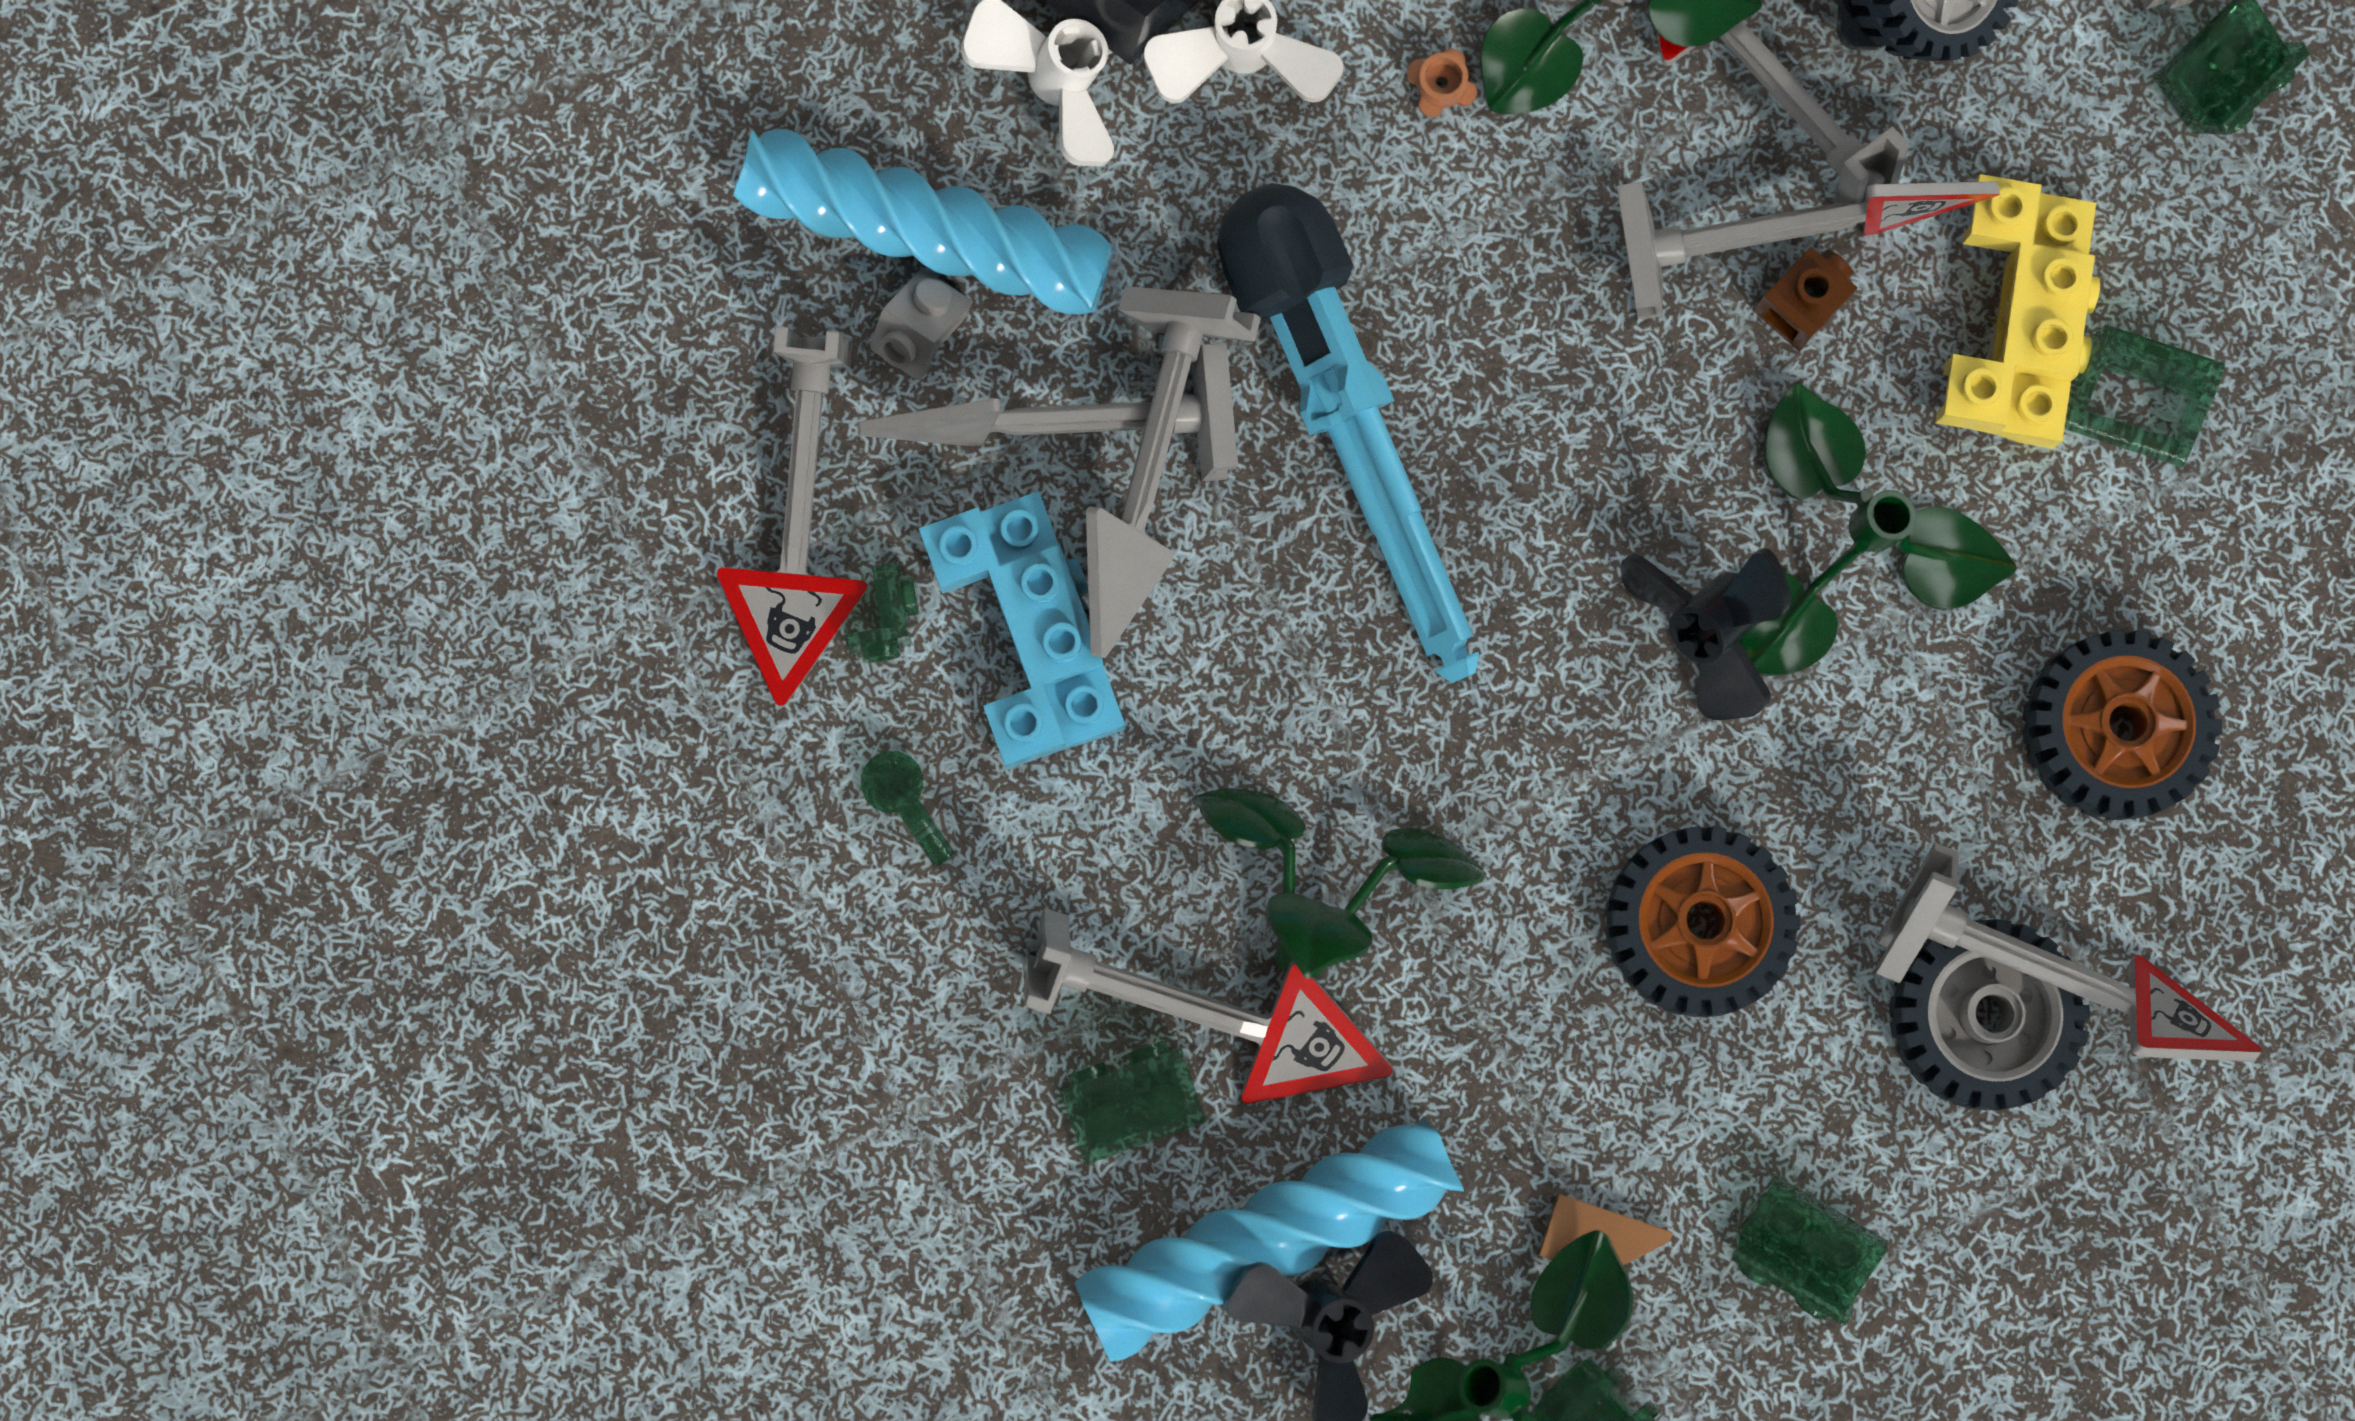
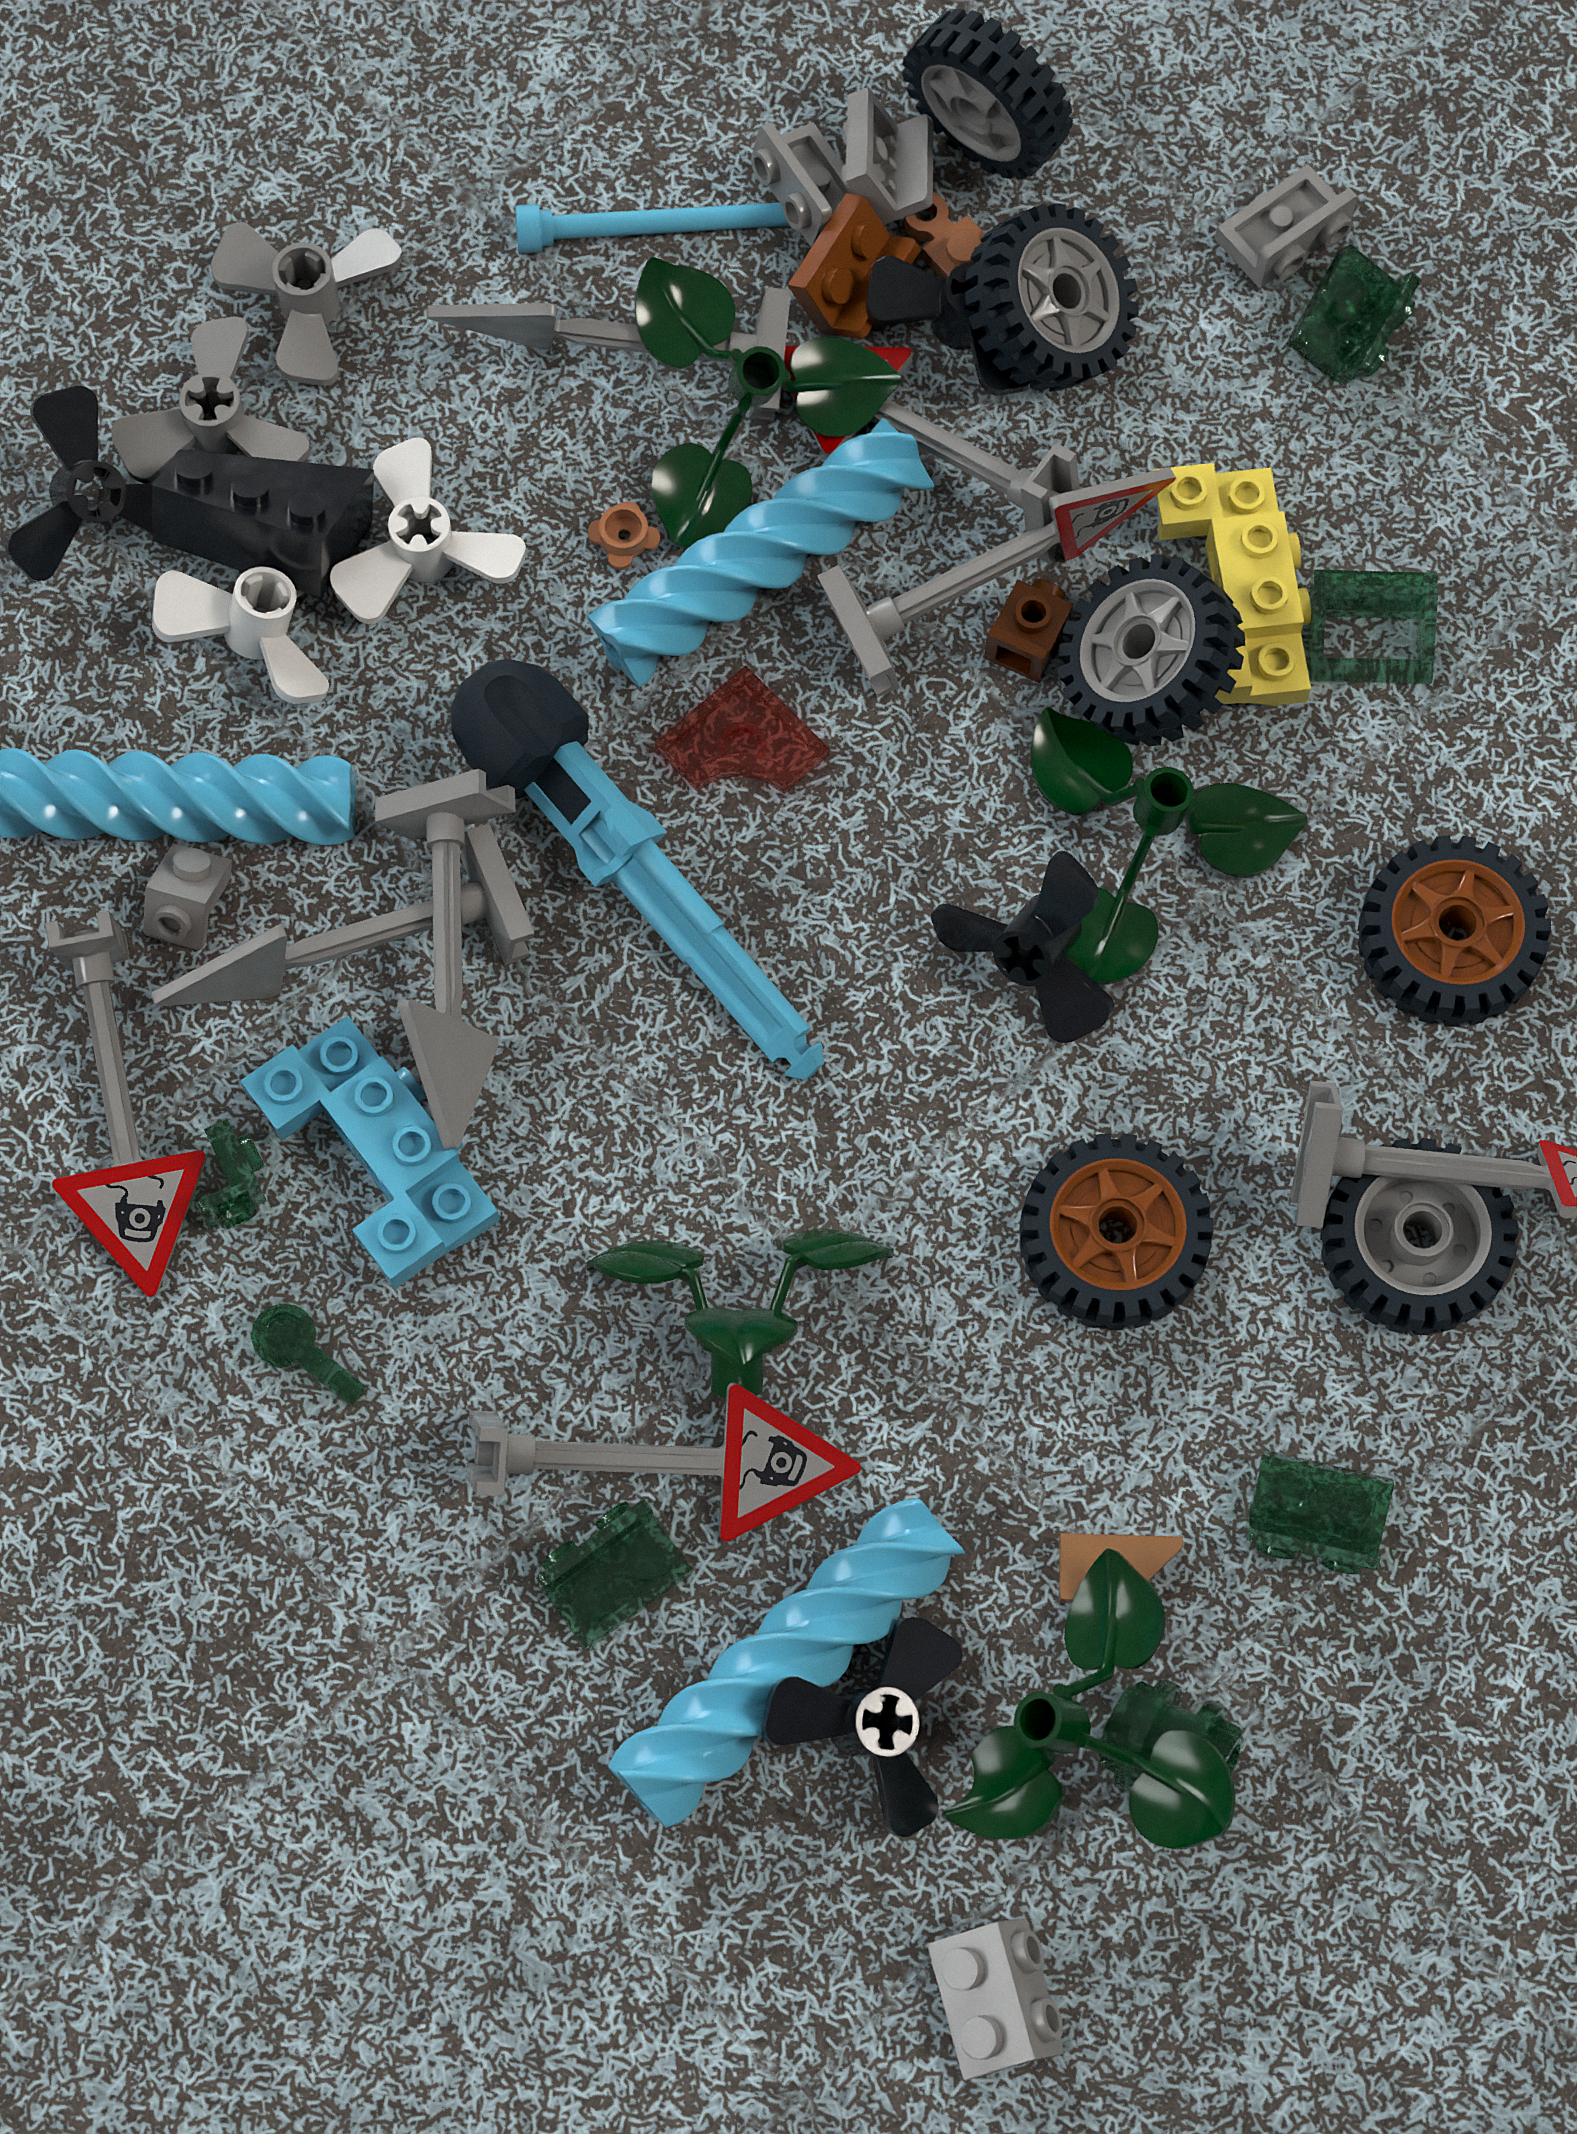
camera: 15 degrees left, 10 degrees down
(1495, 319) = (744, 734): none -> clear red tile
(1570, 141) = (759, 549): none -> medium azure piece
(1954, 386) = (1151, 650): none -> wheel

